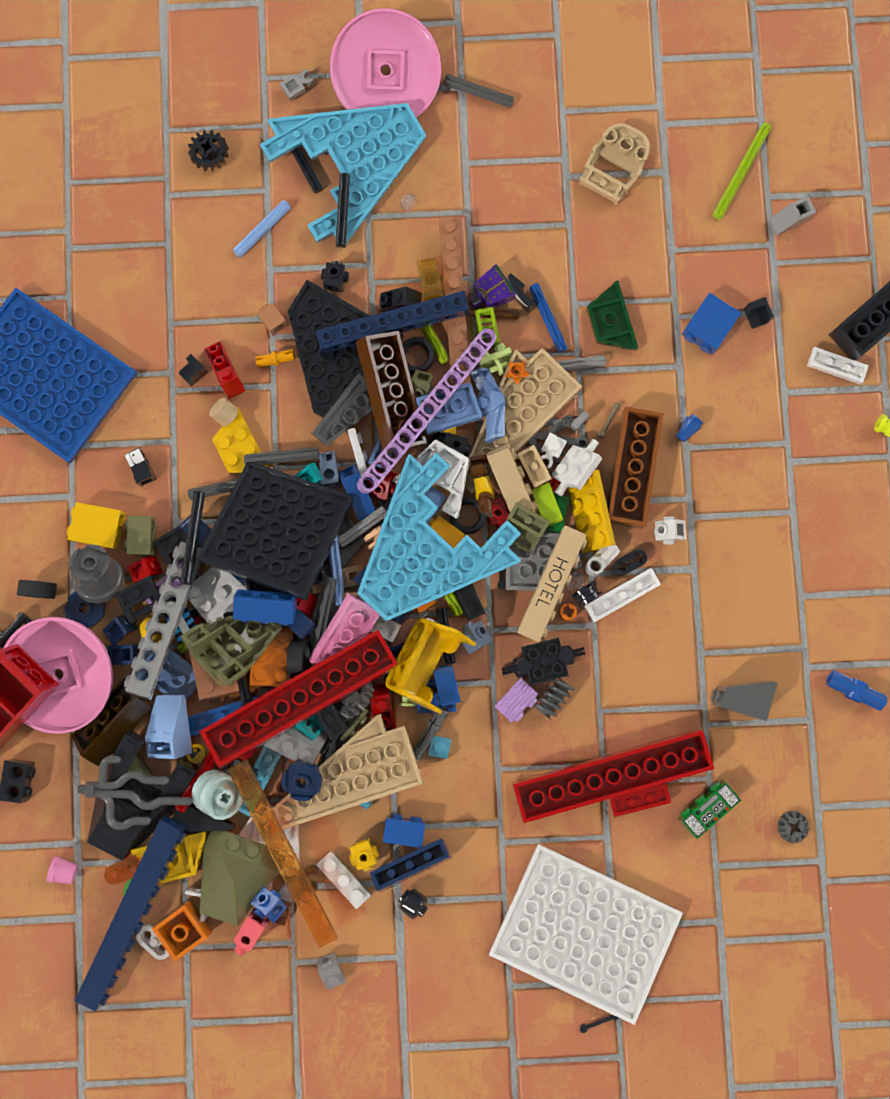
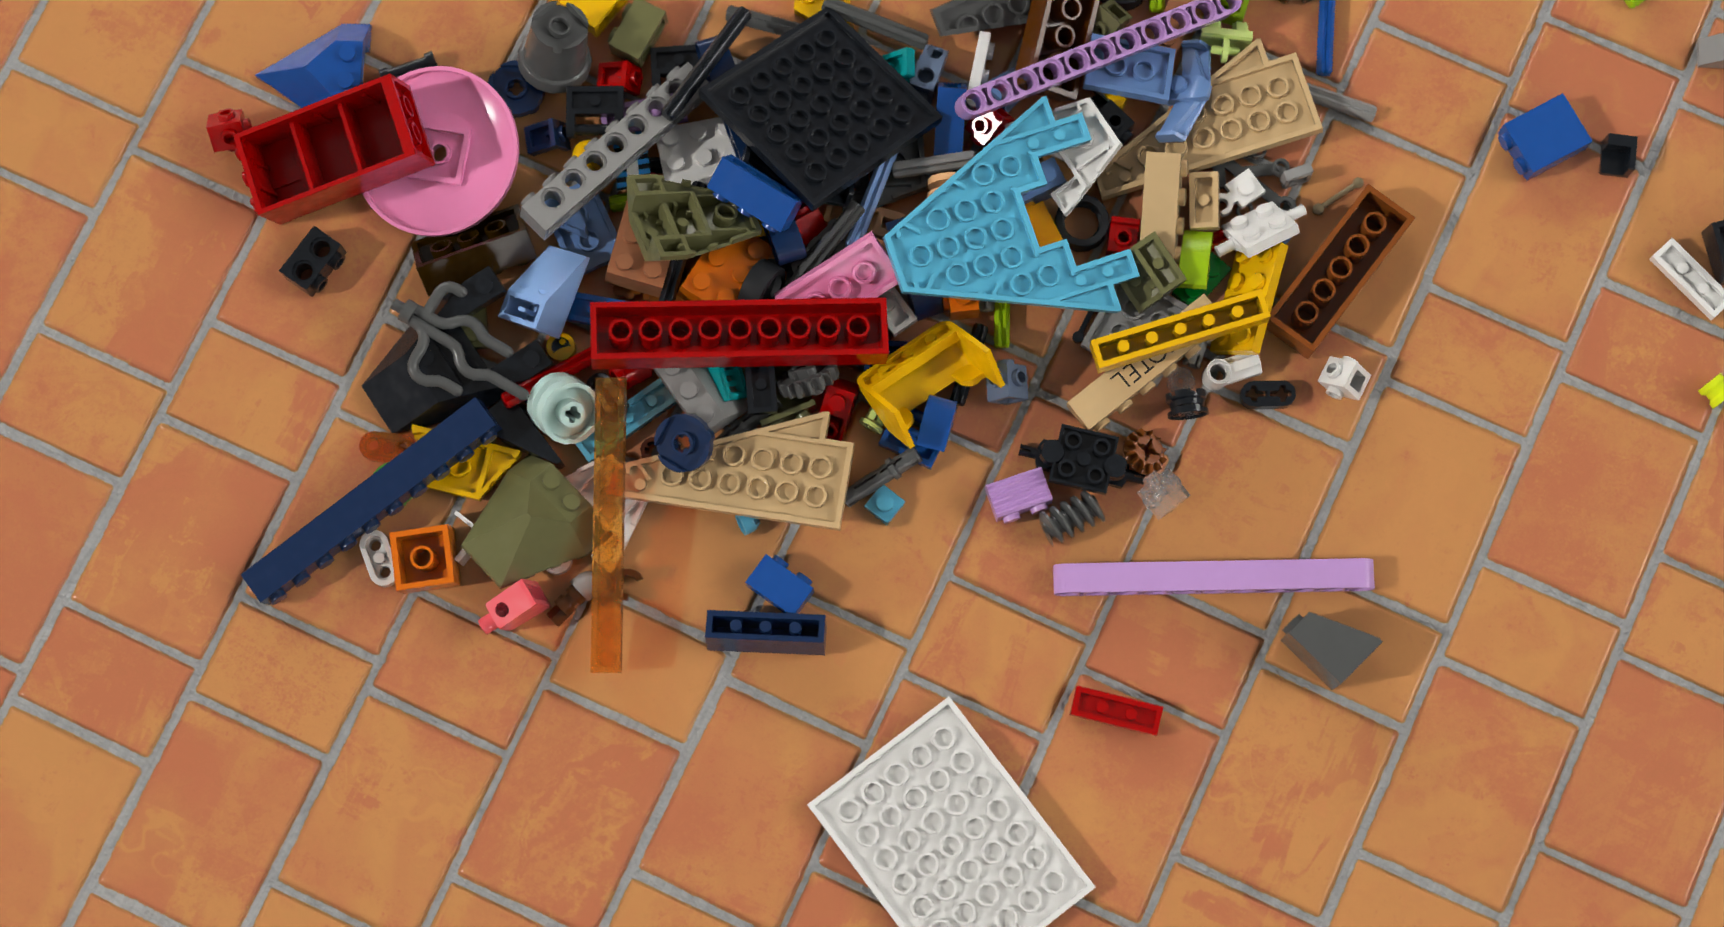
camera: 30 degrees right, 5 degrees down
(36, 589) = (469, 31): black tyre -> none
(61, 871) = (310, 405): bright pink piece -> none
(123, 654) = (535, 169): dark blue slope -> none
(268, 905) = (554, 582): blue brick -> none
(330, 971) = (587, 717): light grey bracket -> none
(344, 879) = (667, 609): white plate -> none
(363, 847) = (707, 577): yellow brick -> none
(413, 903) = (742, 686): black head -> none
(470, 602) = (1024, 333): black plate -> none
(483, 484) = (1122, 191): reddish brown piece -> none
(517, 376) = (1249, 60): orange plate -> none
(564, 558) = (1180, 331): none -> yellow brick
(570, 606) = (1141, 421): orange bush -> none
(573, 641) = (1136, 456): none -> dark orange gear
(600, 655) = (1162, 493): none -> clear brick
(611, 319) = (1411, 65): dark green wing -> none
(612, 775) = (1096, 656): red brick -> none
(622, 595) = (1234, 431): white plate -> none
(654, 690) = (1213, 577): none -> lavender beam
(689, 427) = (1443, 258): blue cone -> none
(709, 808) = (1203, 769): brick -> none
(785, 829) = (1293, 853): dark grey gear -> none
(856, 690) = (1489, 720): blue piece -> none

